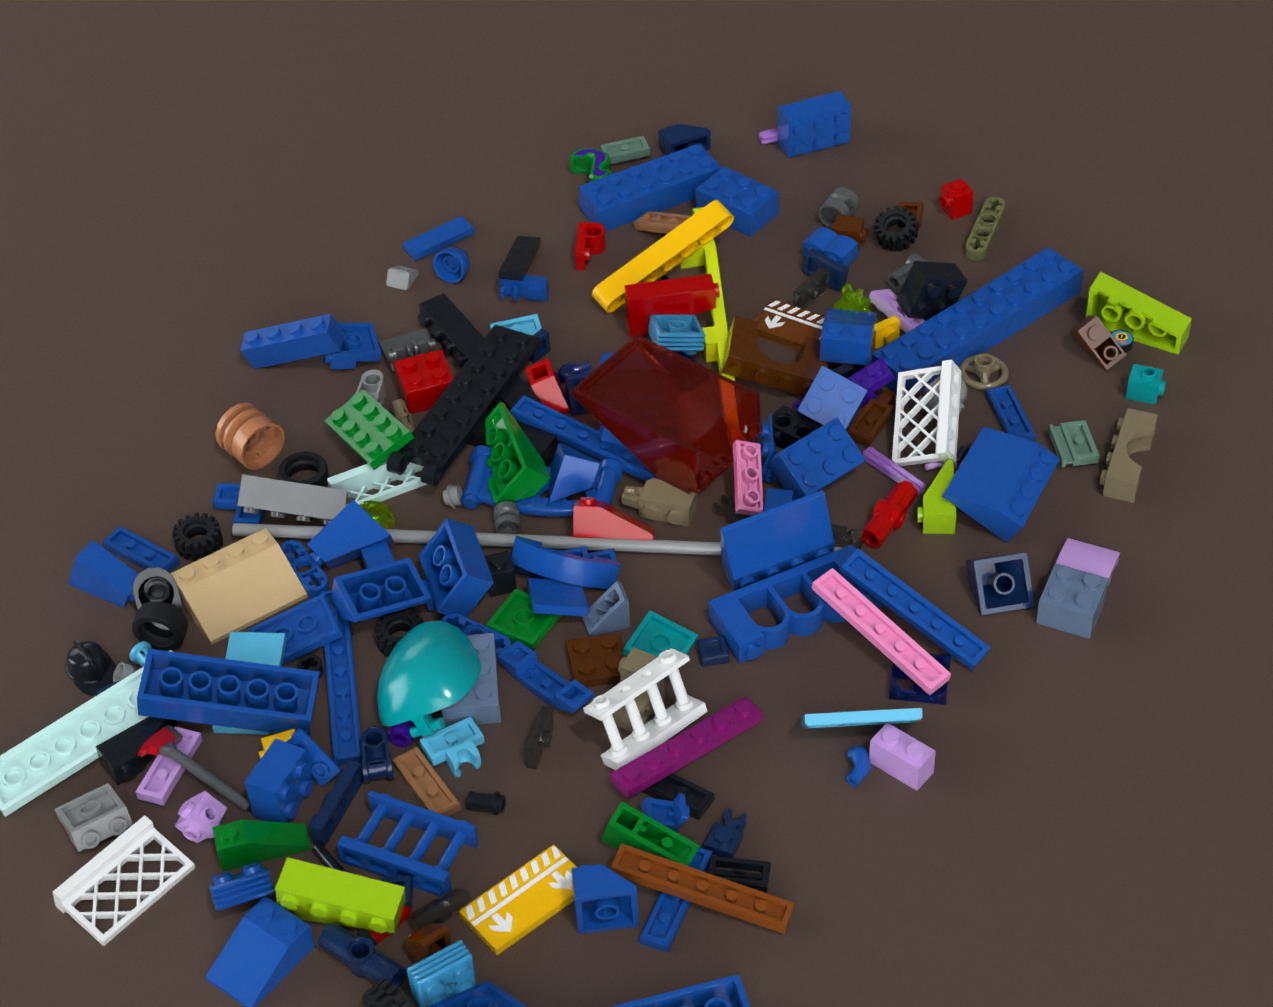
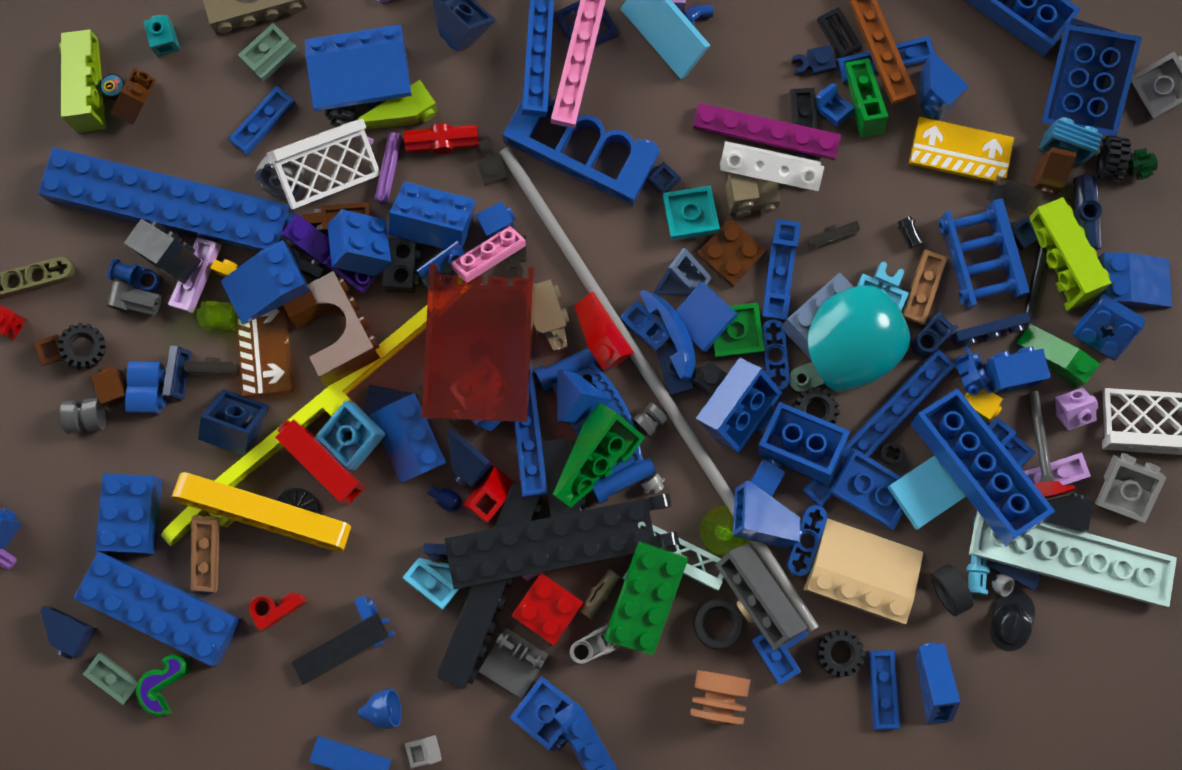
camera: 130 degrees left, 35 degrees up
(156, 585) = (926, 619): black piece -> none
(235, 756) = (1015, 446): none -> blue slope
(755, 283) = (232, 422): none -> dark blue slope
(776, 540) = (547, 182): blue slope -> none
(983, 366) = (219, 162): dark tan piece -> none

